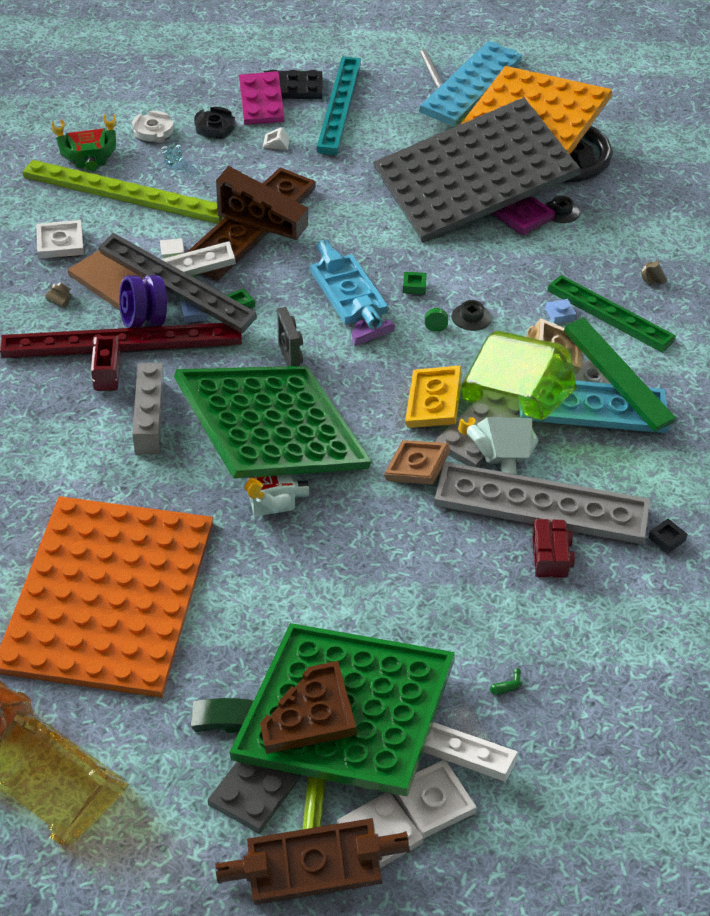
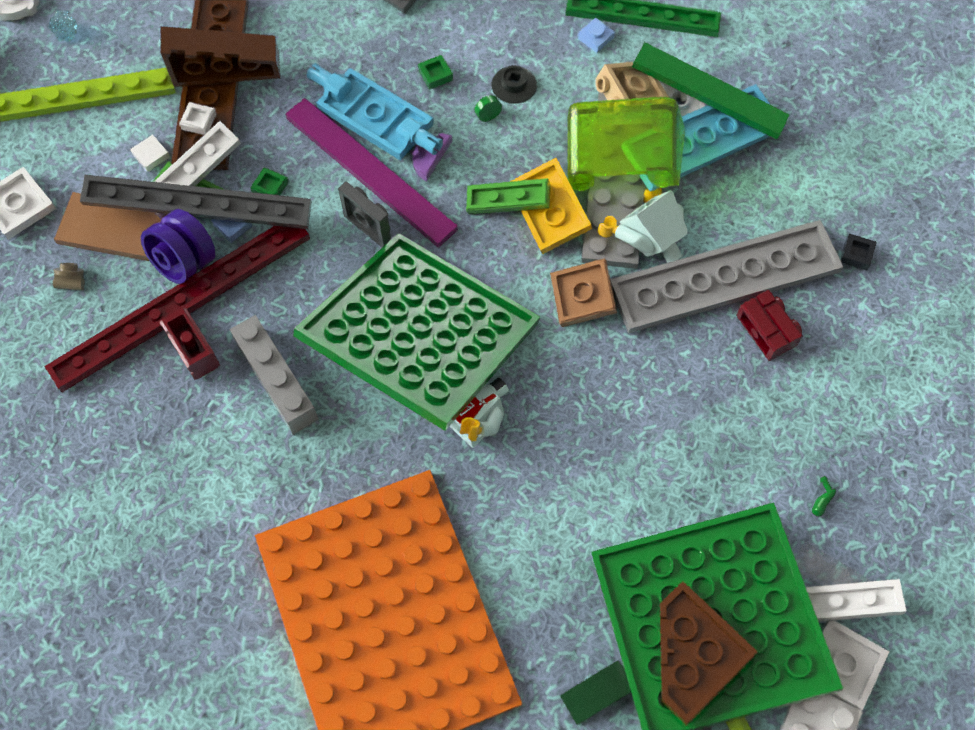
camera: 30 degrees left, 20 degrees up
(218, 236) = (197, 118): none -> white tile
(319, 326) = (372, 173): none -> magenta tile
(406, 377) = (508, 196): none -> bright green tile

